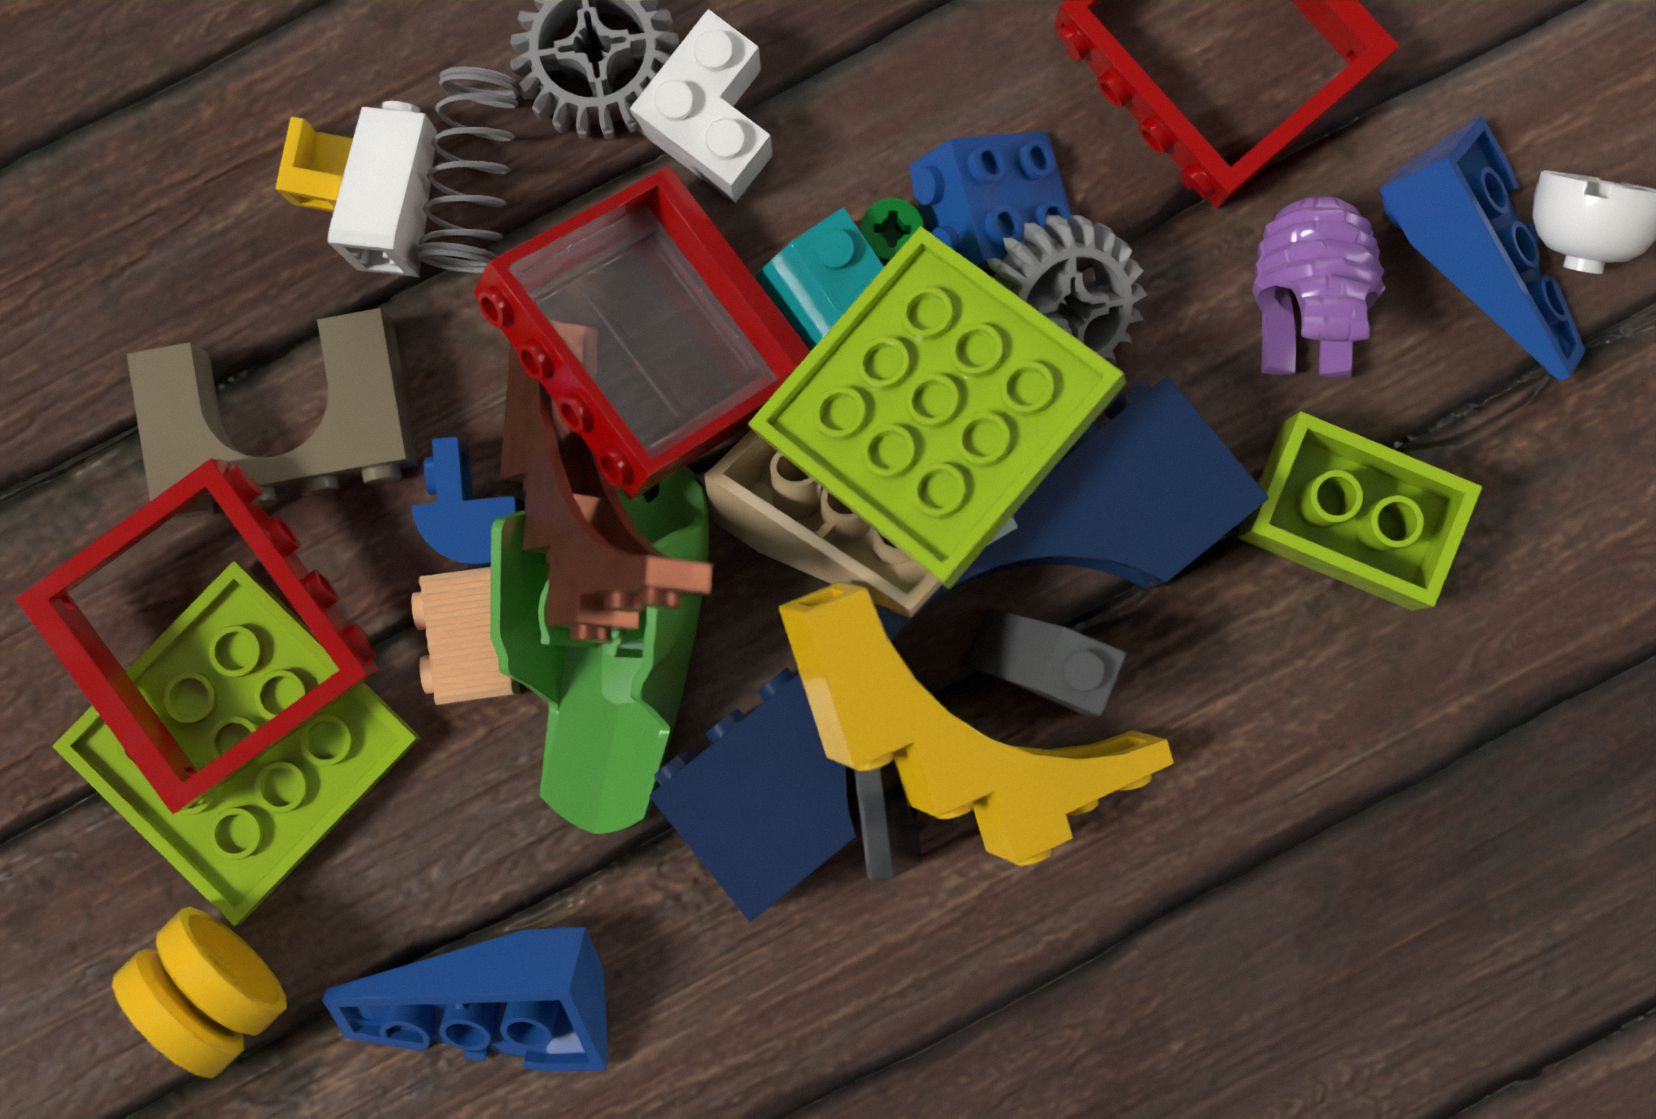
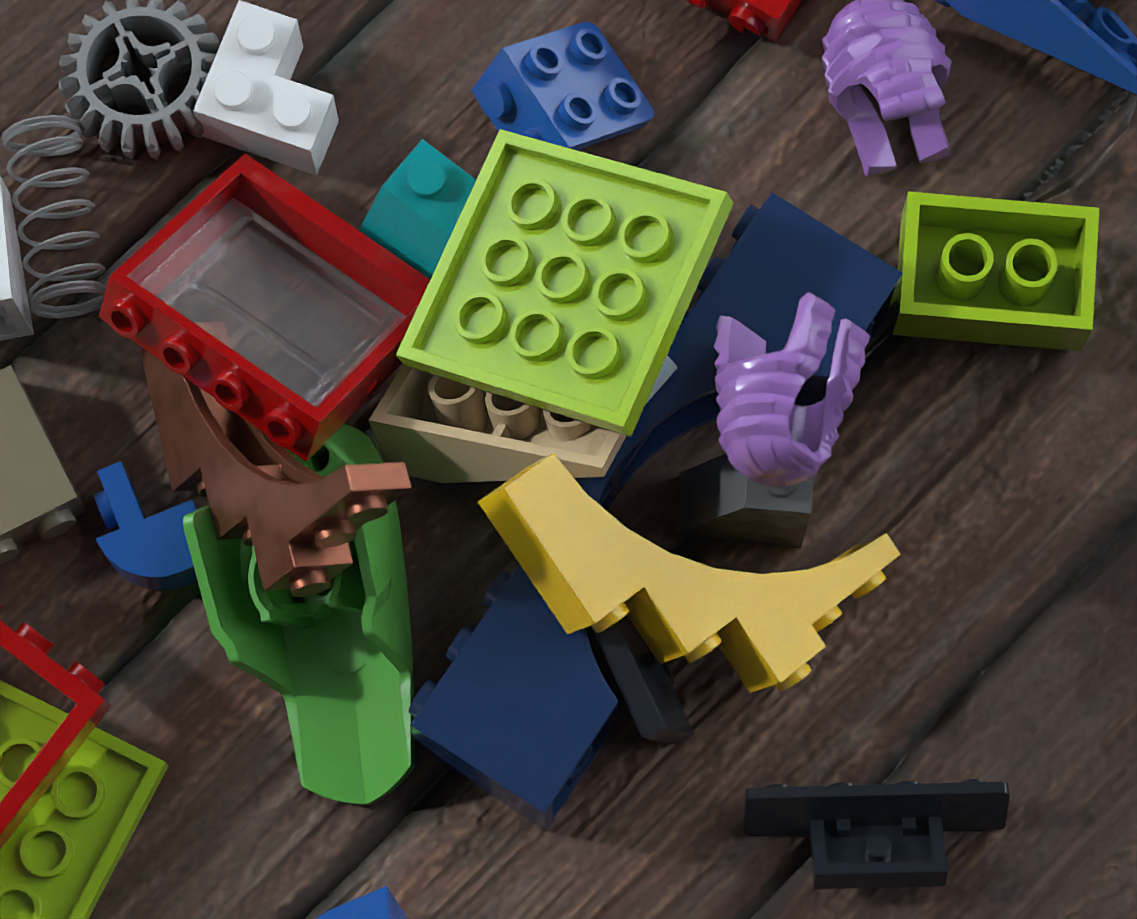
camera: 15 degrees left, 10 degrees down
(457, 626) = (185, 655): light nougat brick -> none
(890, 239) = (465, 137): green wheel -> none
(1046, 277) = (630, 128): light grey gear -> none
(1062, 1020) = (877, 831): none -> black bracket
(1088, 619) = (758, 421): none -> medium lavender hair

